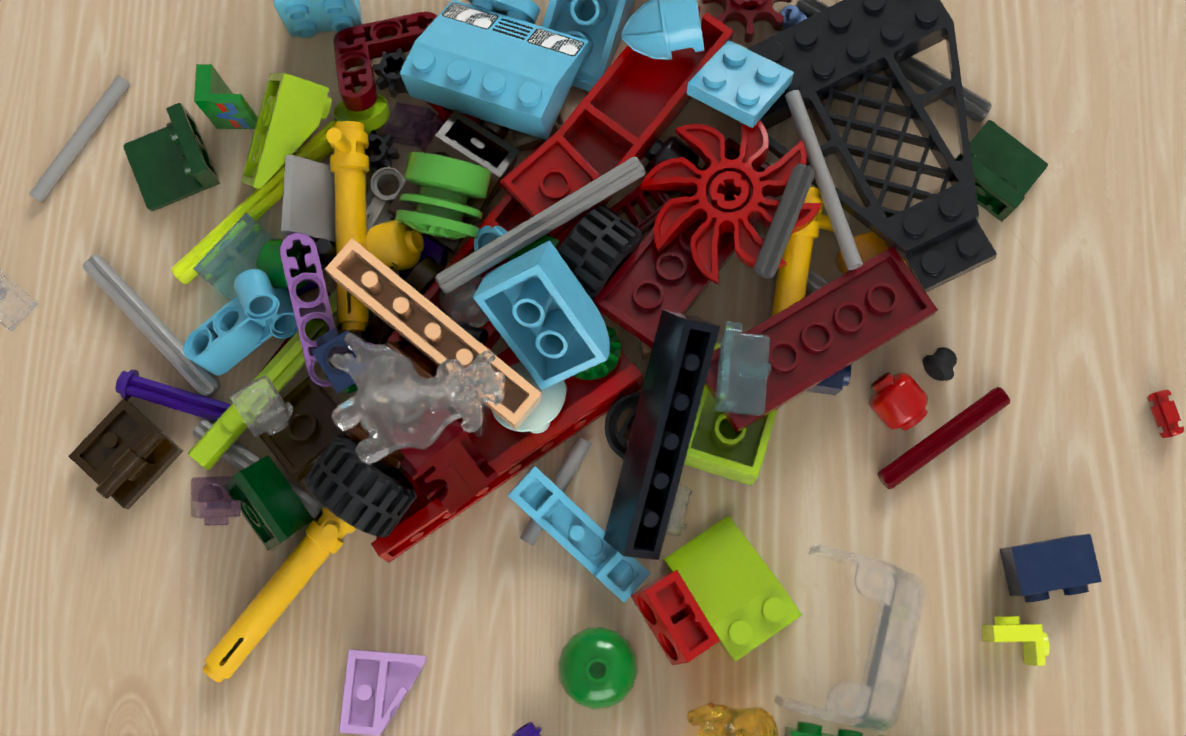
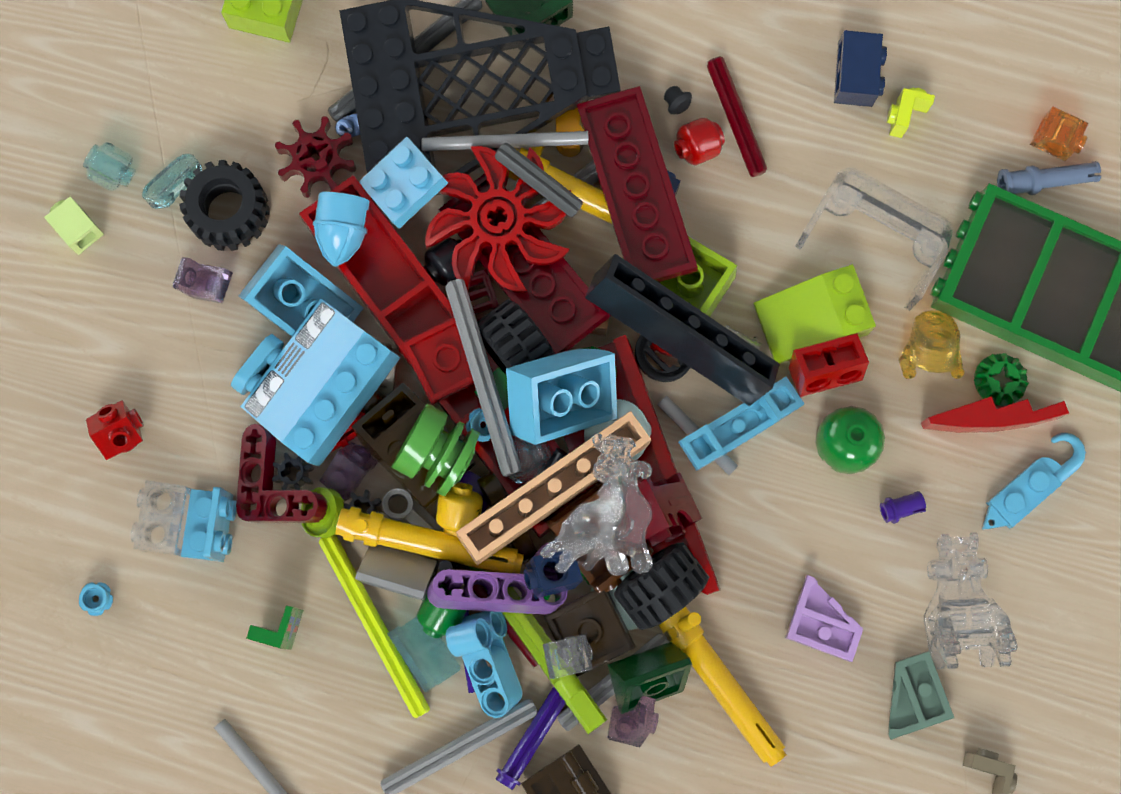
camera: 80 degrees left, 0 degrees up
(171, 161) = (314, 695): dark green bracket -> none
(285, 120) = (320, 583): lime slope -> none
(742, 371) = (652, 250): clear light blue panel -> none

